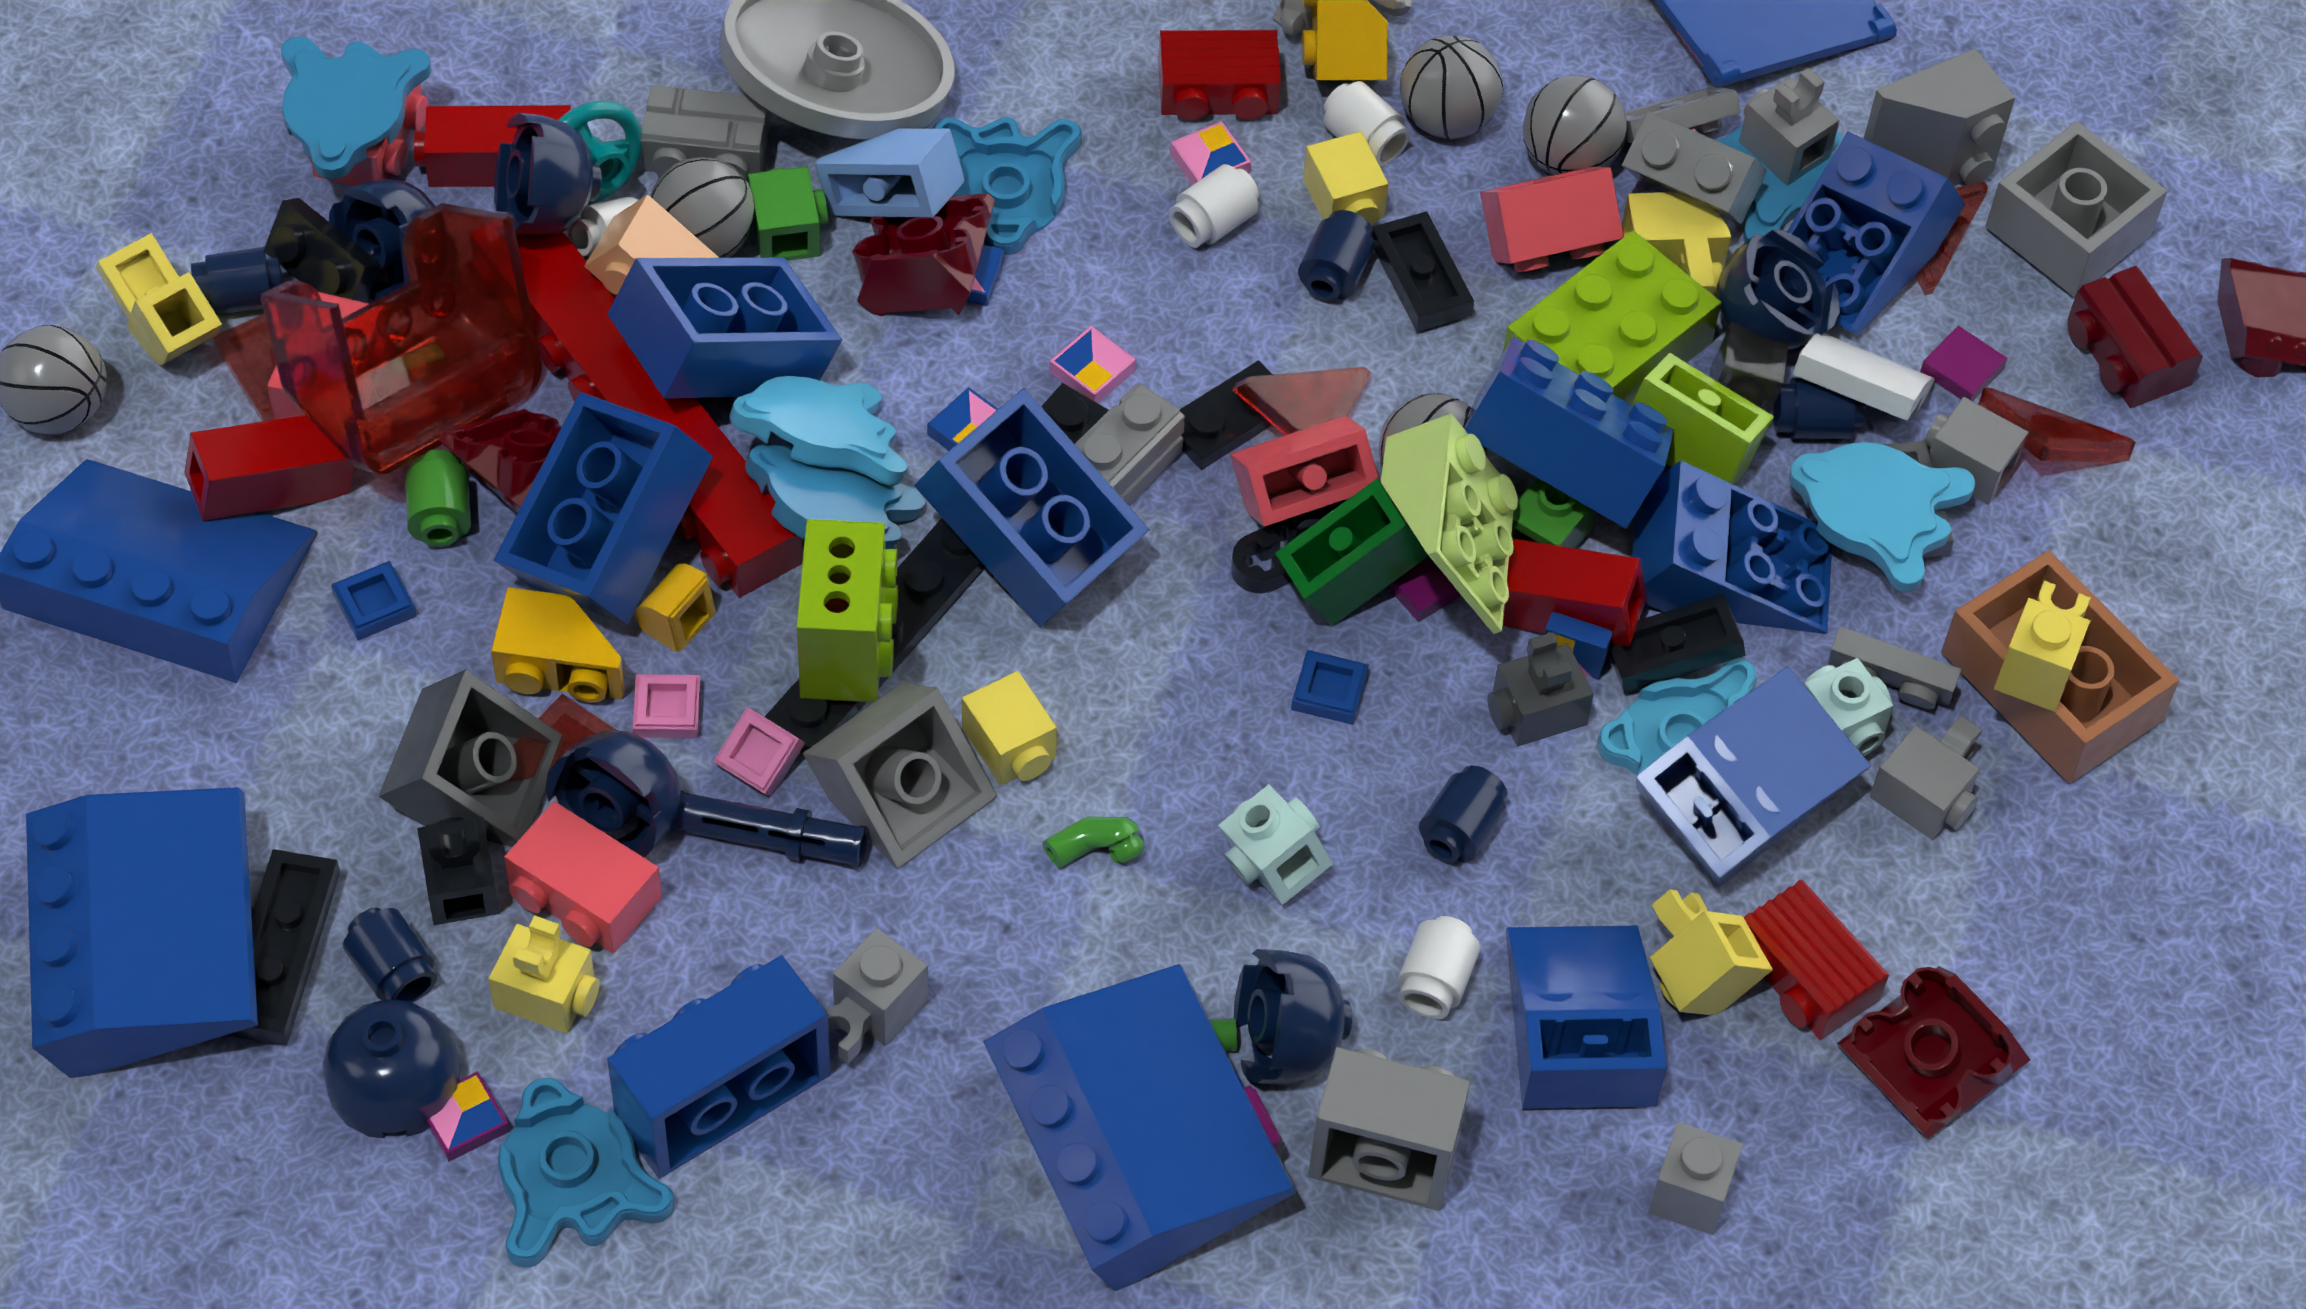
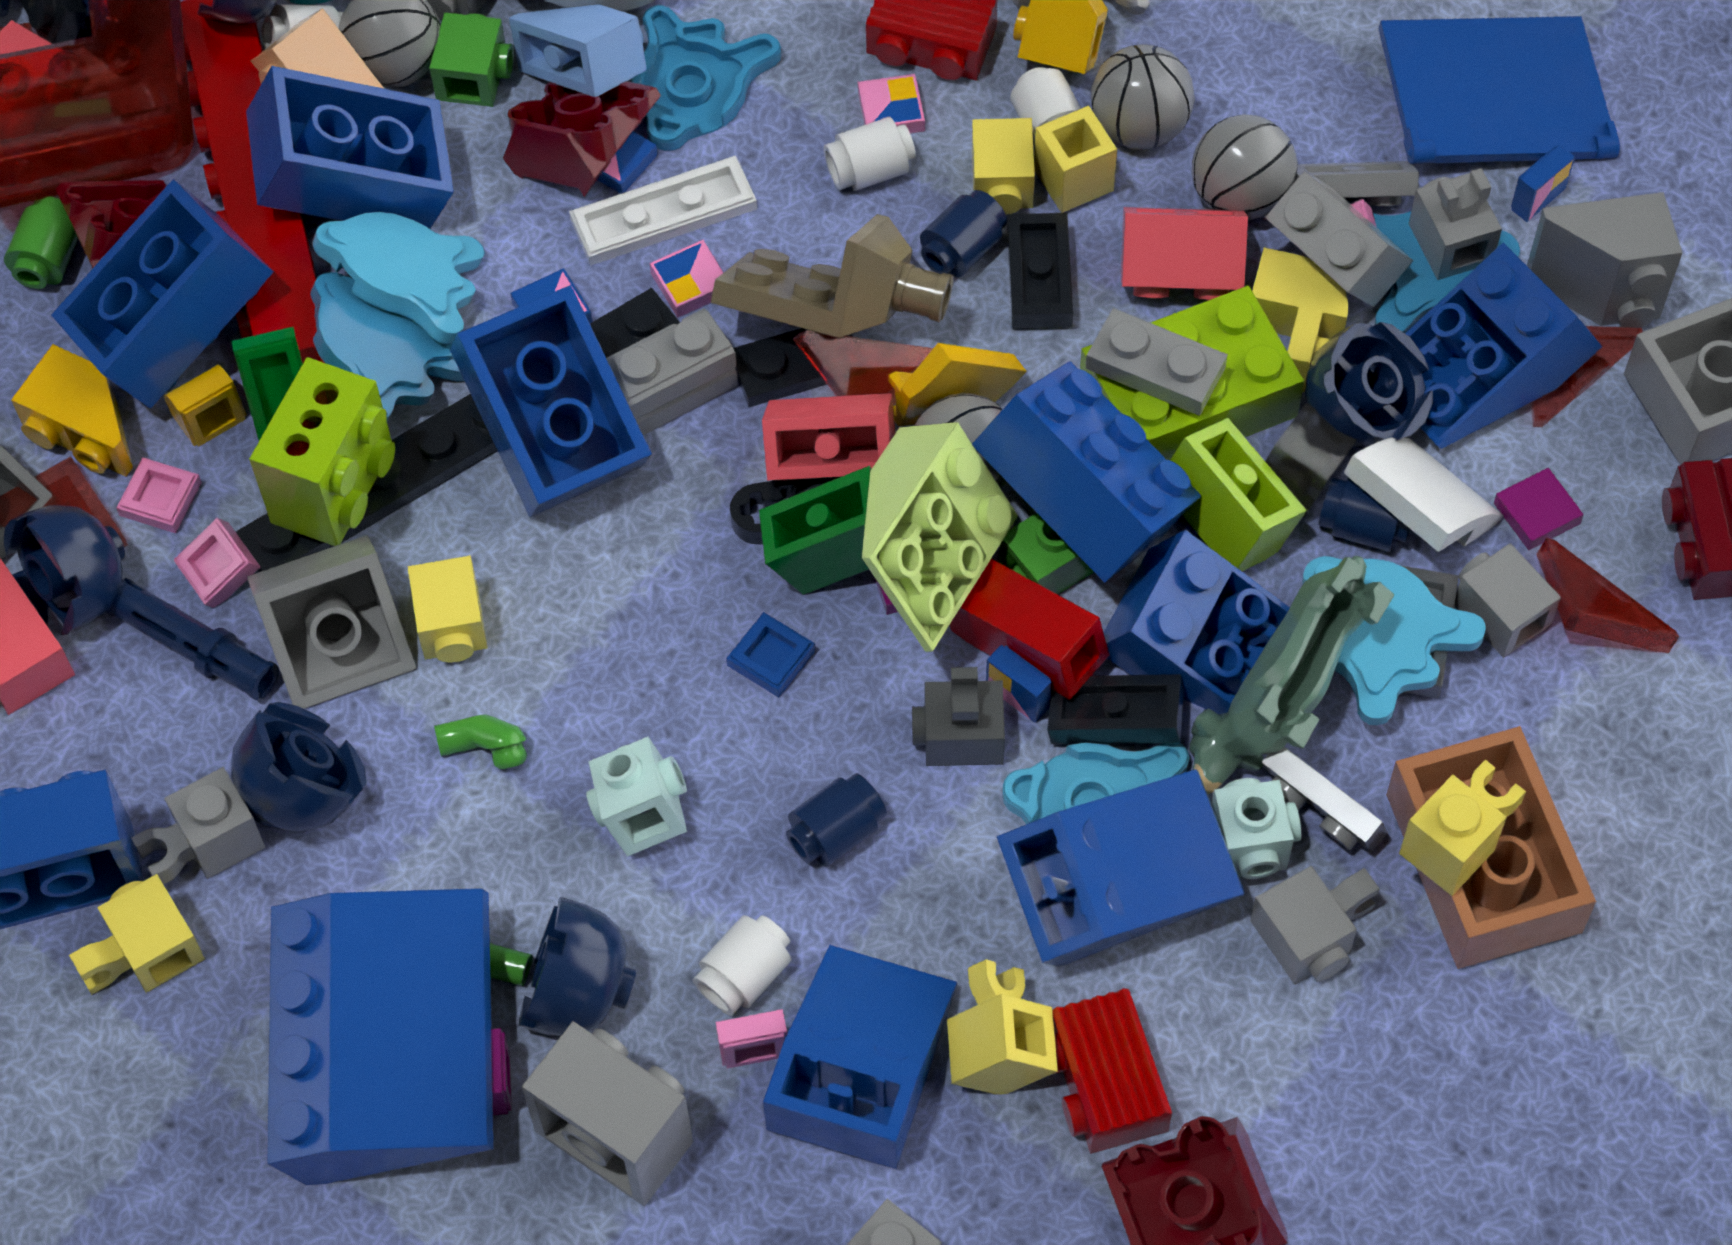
camera: 25 degrees right, 5 degrees up
(755, 571) = (267, 371): none -> green tile
(858, 1110) = (145, 937): none -> light yellow brick
(940, 918) = (293, 771): none -> dark blue cylinder
(1035, 309) = (663, 210): none -> white tile
(1290, 322) = (836, 301): none -> dark tan plate
(1399, 379) = (949, 372): none -> yellow slope
(1417, 158) = (1075, 159): none -> light yellow brick
(1478, 1029) = (751, 1038): none -> bright pink tile
(1588, 317) = (1156, 361): none -> light grey plate
(1828, 562) = (1288, 675): none -> sand green animal
(1844, 73) = (1542, 182): none -> blue tile

